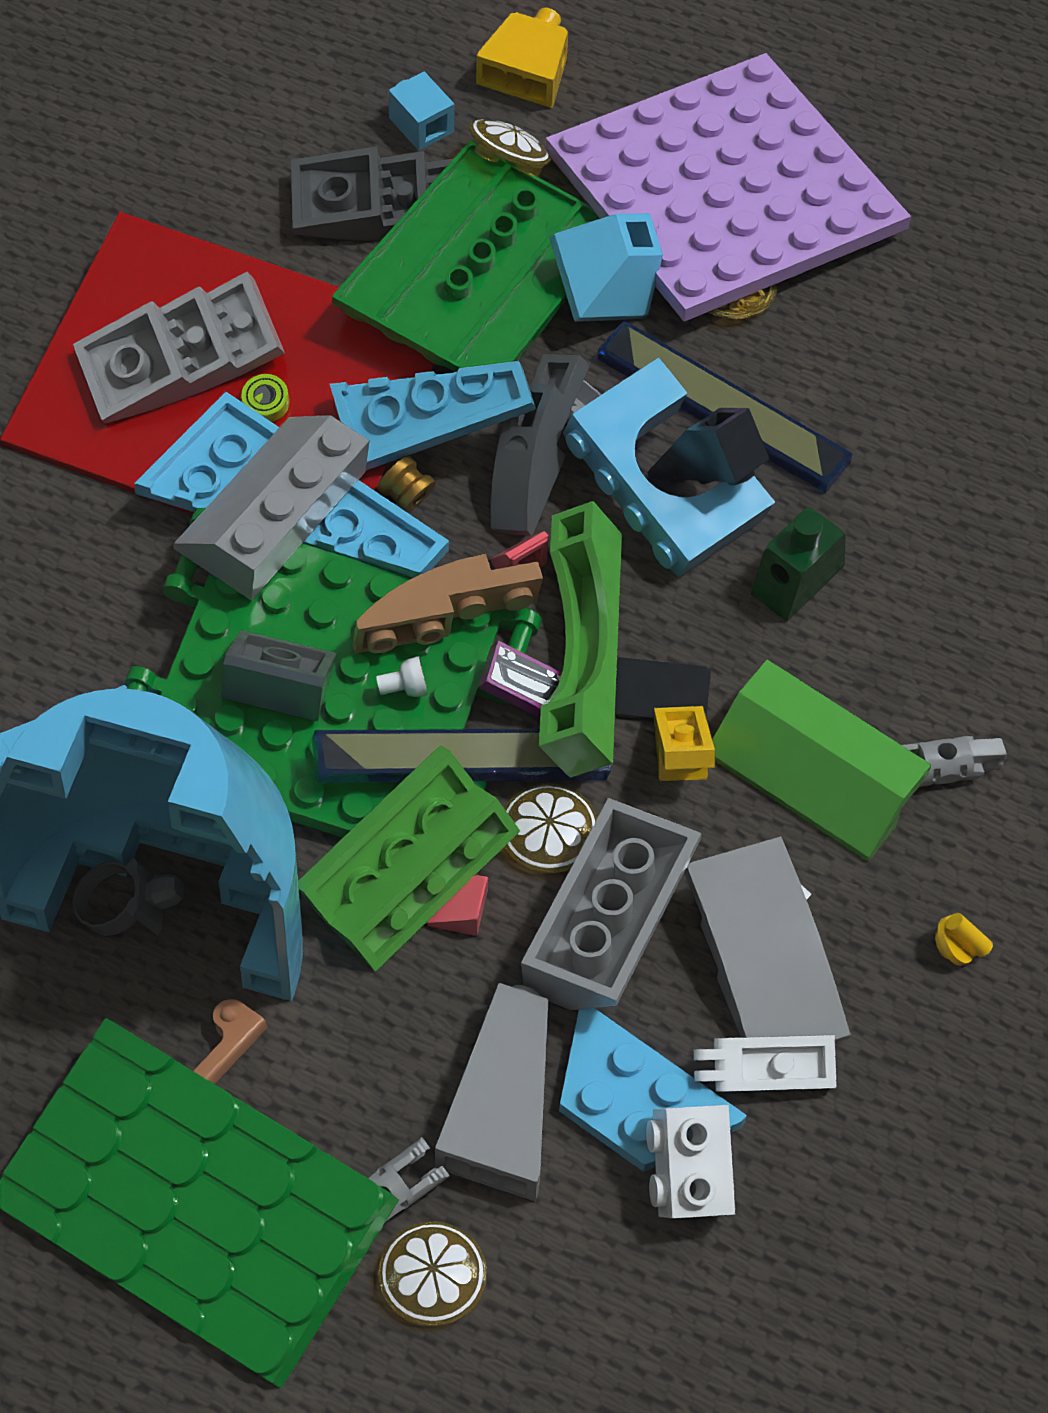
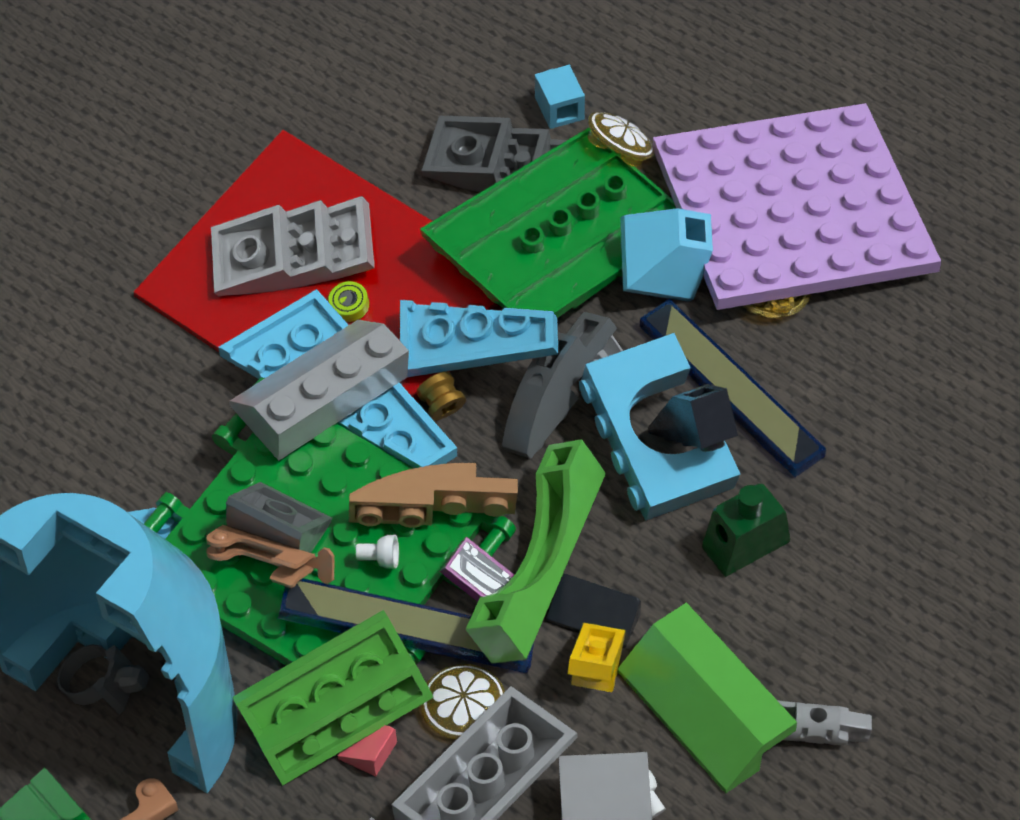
camera: 20 degrees right, 5 degrees down
(318, 714) = (292, 562): none -> nougat piece
(525, 57) = (661, 69): yellow torso -> none
(526, 551) = (524, 471): coral slope -> none

